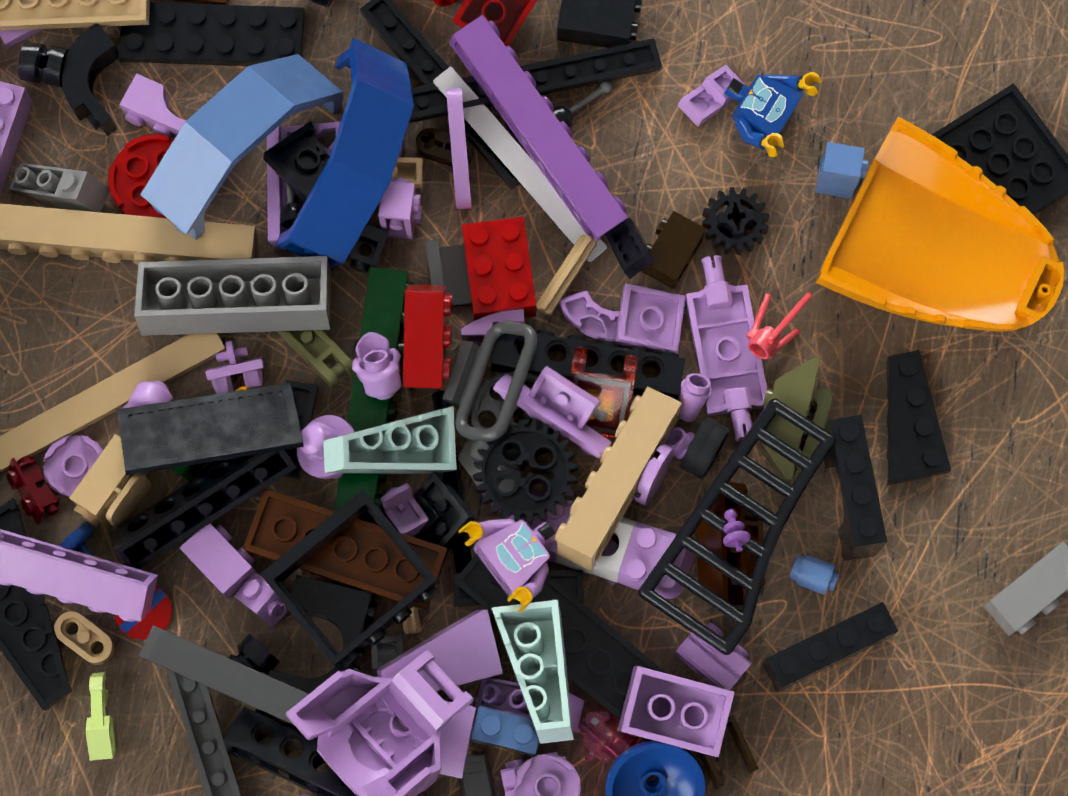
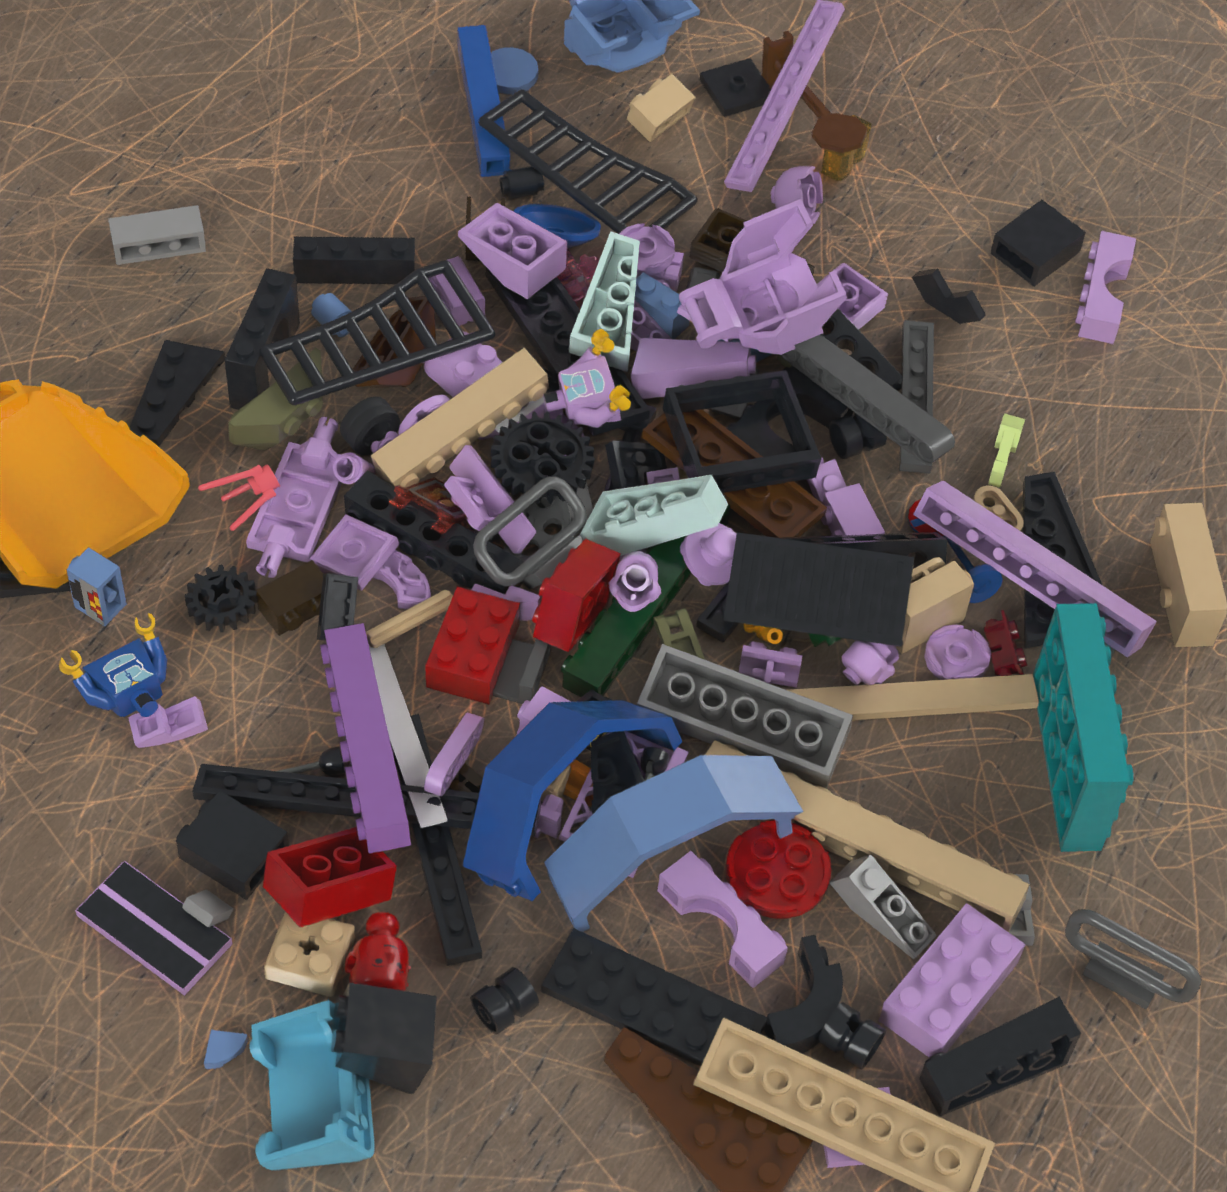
camera: 160 degrees left, 20 degrees down
(734, 529) = (390, 321): medium lavender hair -> none

